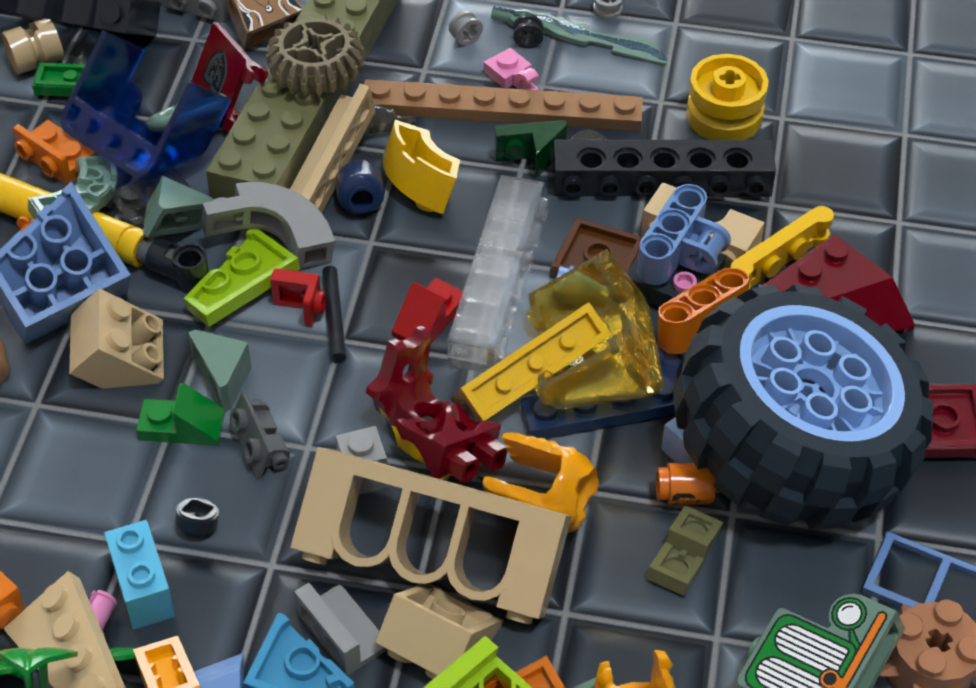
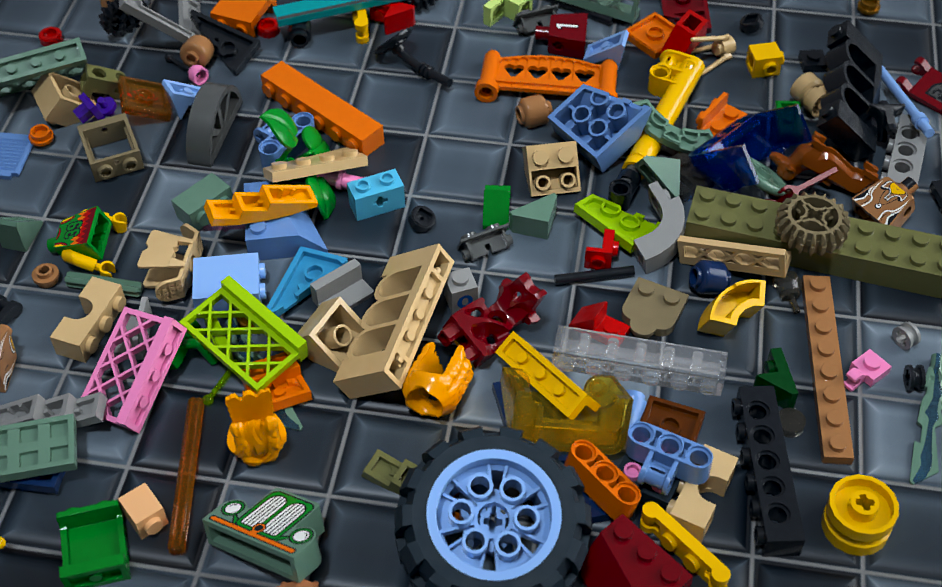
camera: 90 degrees right, 0 degrees up
(176, 49) = (821, 158): none -> dark orange animal
(399, 255) = (652, 309): none -> dark tan plate

